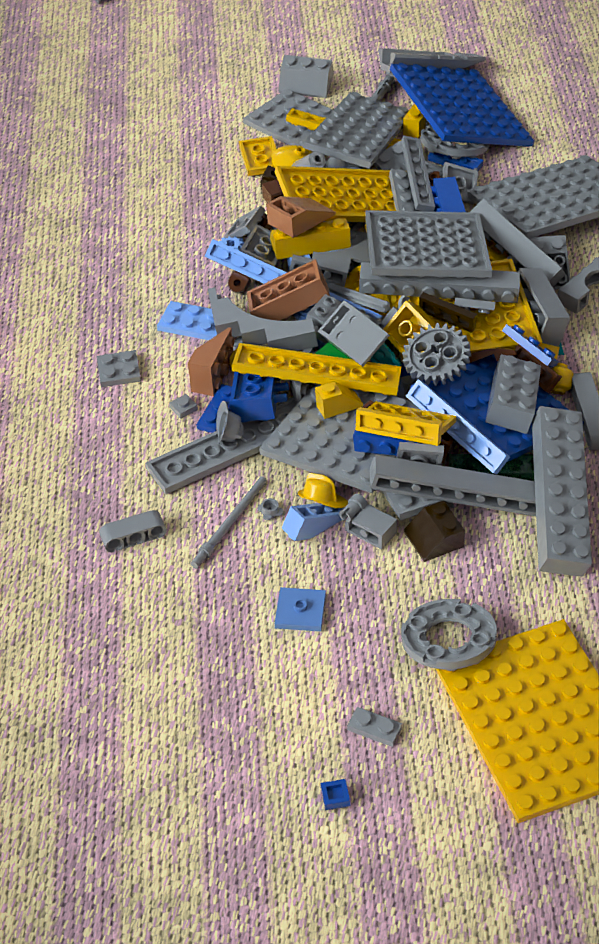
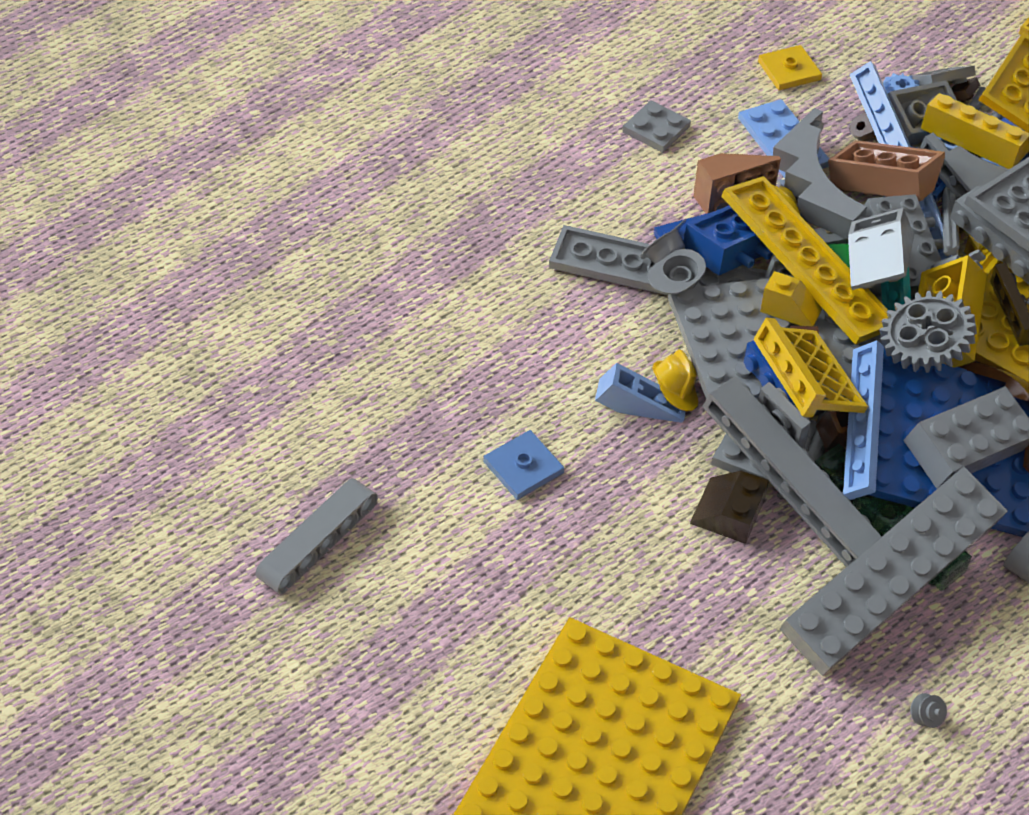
camera: 45 degrees right, 5 degrees up
(132, 530) = (478, 275): light grey beam -> none
(150, 280) = (789, 67): none -> yellow plate
(183, 406) = (666, 203): light grey plate -> none
(207, 549) = (517, 344): light grey bar -> none
(244, 750) = (316, 534): none -> light grey beam
(256, 432) = (677, 272): none -> light grey piece
(269, 504) = (616, 353): light grey plate -> none
(296, 214) = (976, 92): nougat slope -> none
(335, 794) = (334, 643): blue plate -> none
(368, 522) = (682, 441): light grey hinge -> none
(374, 726) = (445, 622): light grey plate -> none
(435, 656) = (622, 572): light grey plate -> none

